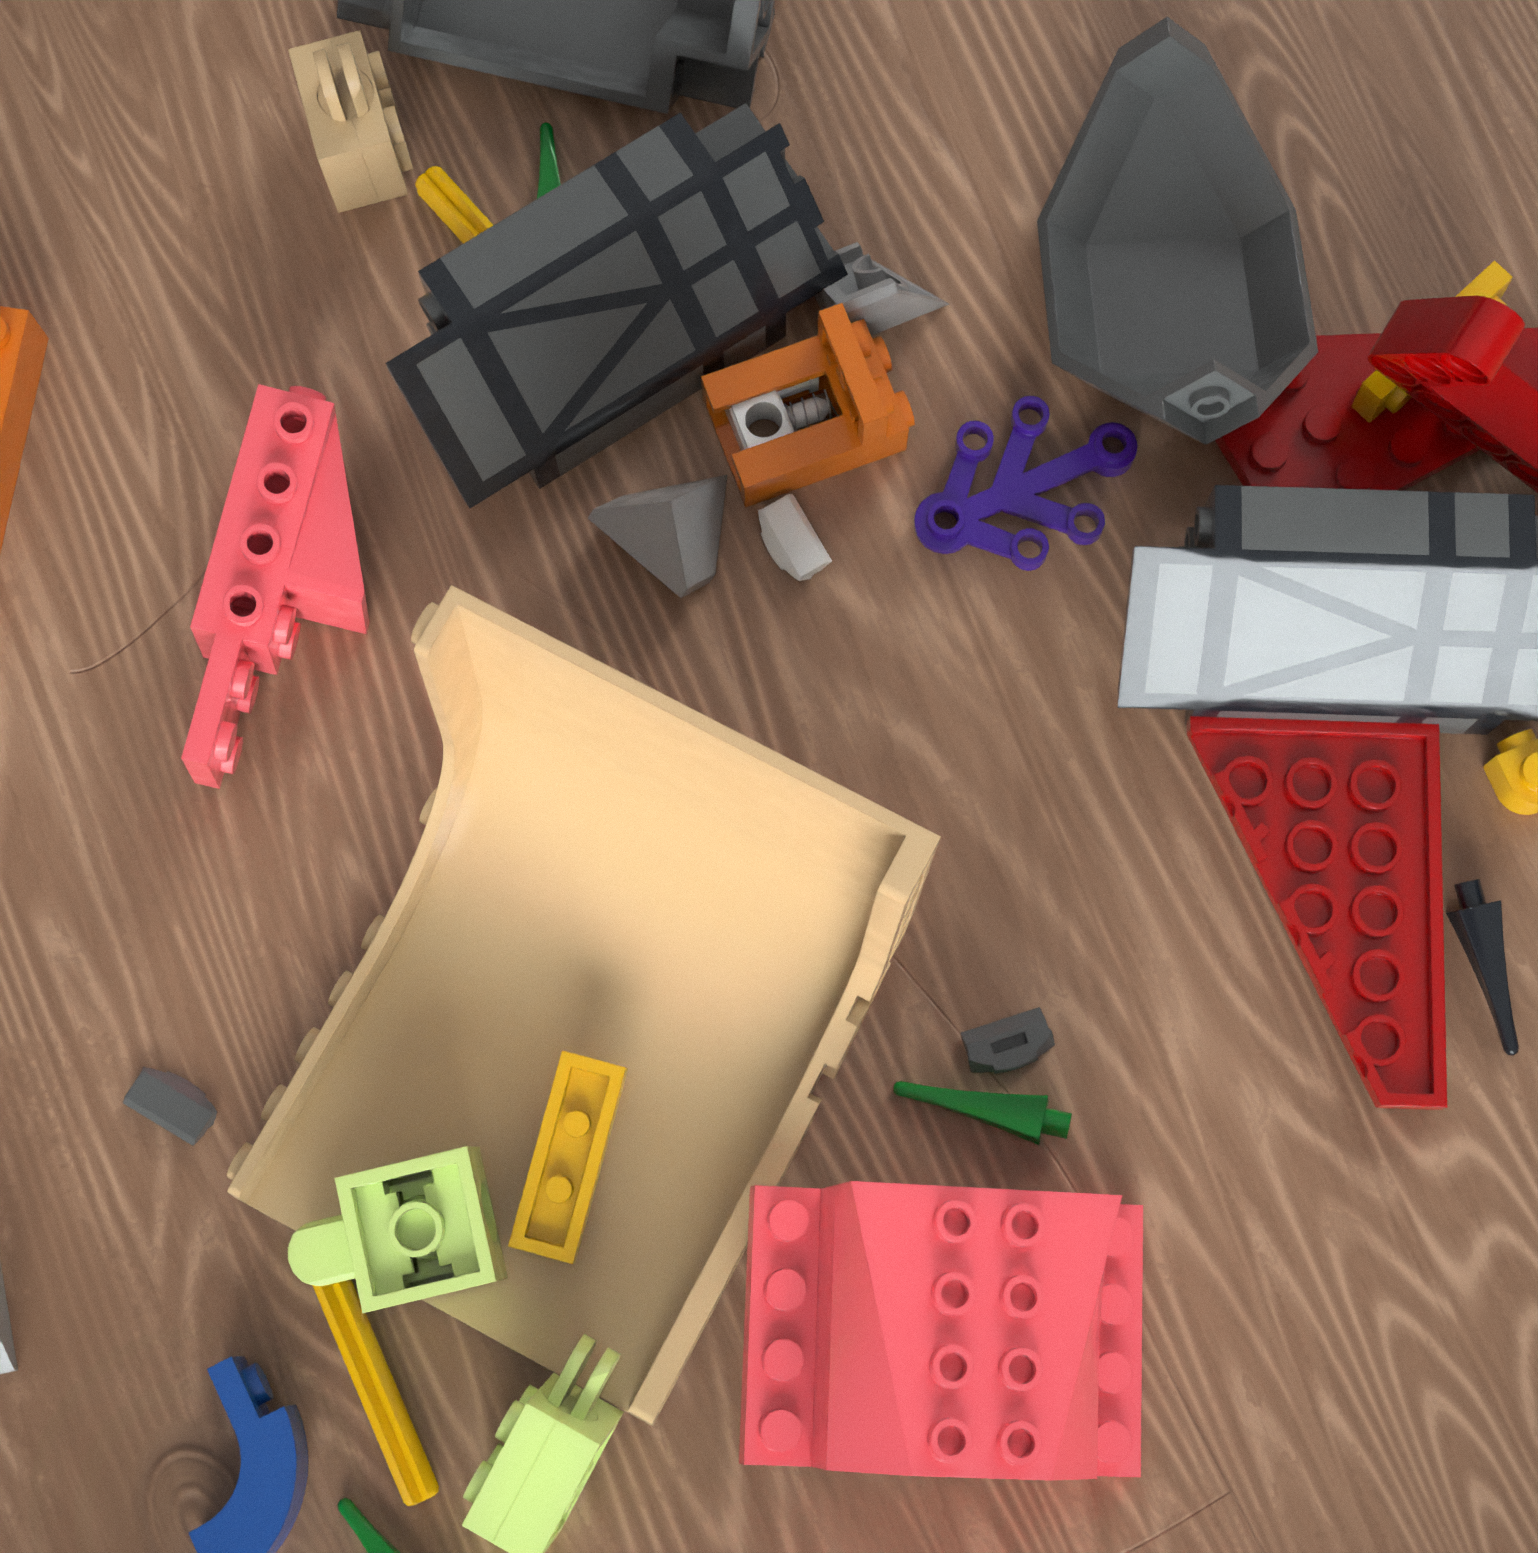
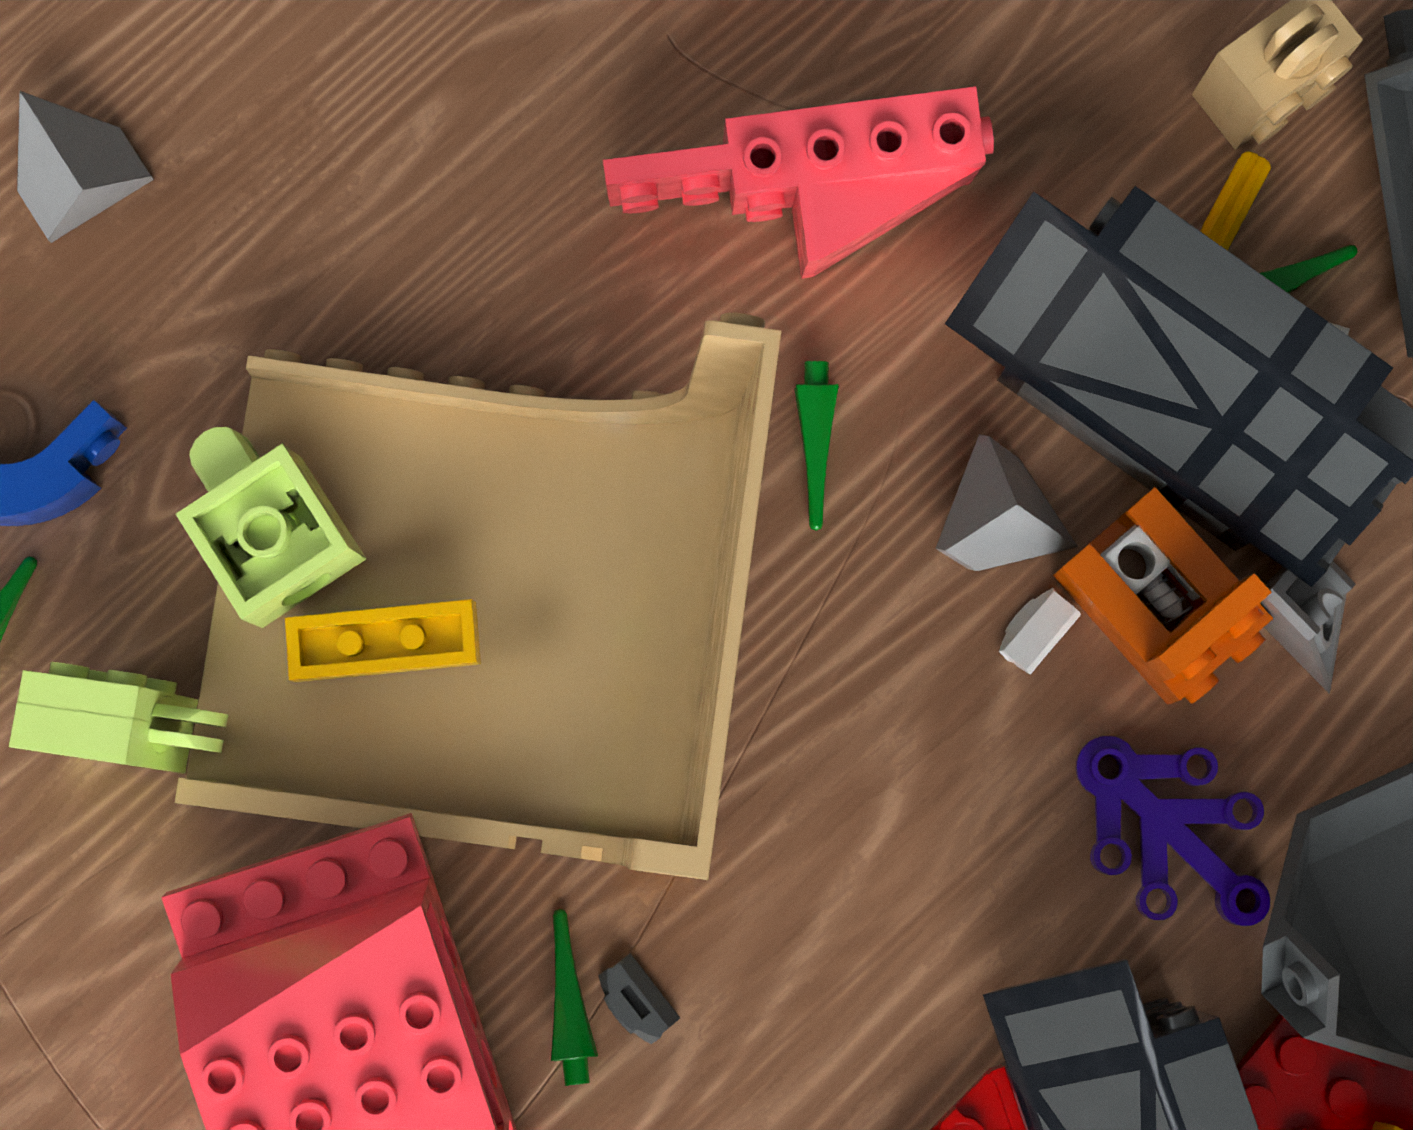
camera: 70 degrees right, 5 degrees up
(171, 1104) = (318, 278): dark grey piece -> none
(378, 1392) = (124, 560): yellow axle -> none

